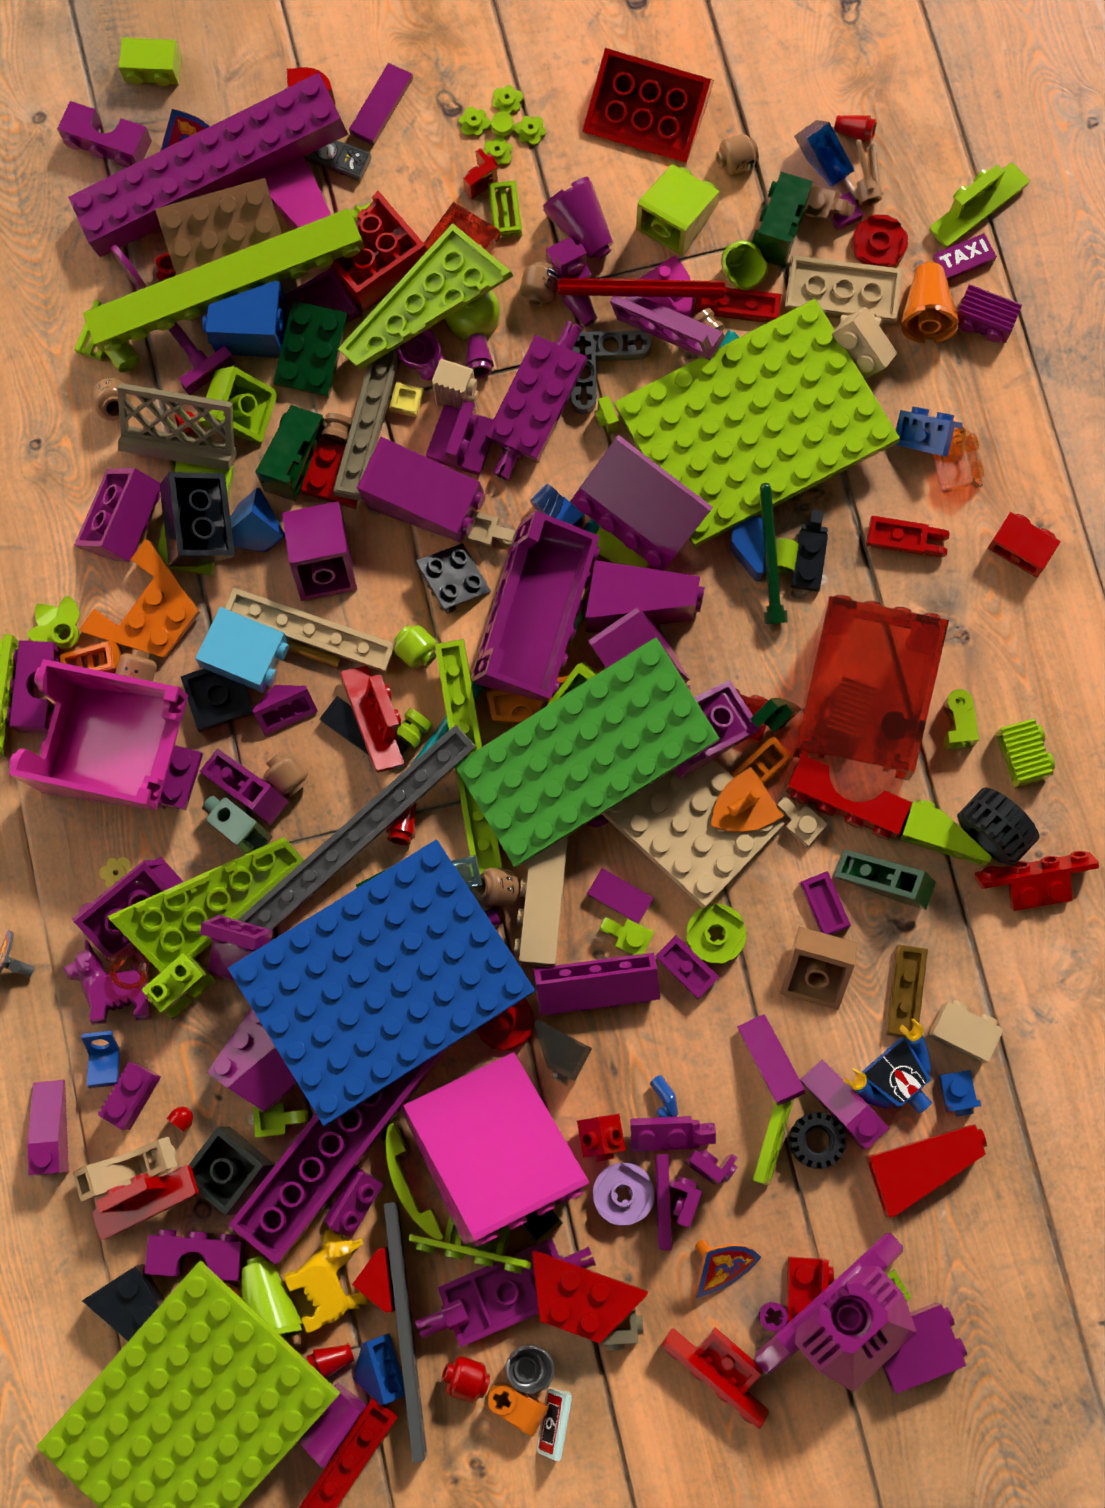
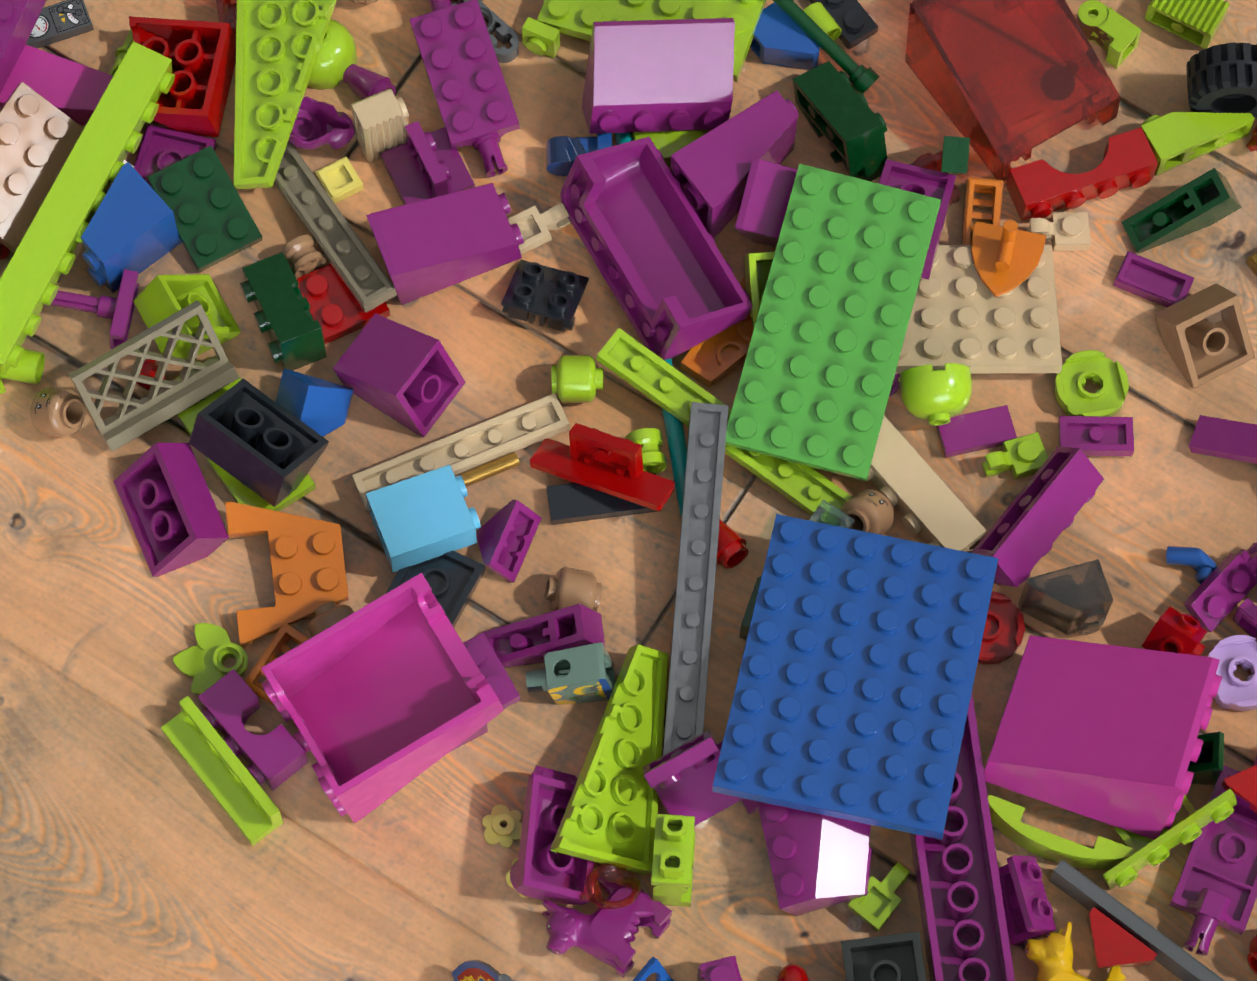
camera: 50 degrees left, 10 degrees down
(613, 853) = (936, 392): none -> lime cylinder
(732, 631) = (844, 119): none -> dark green wedge

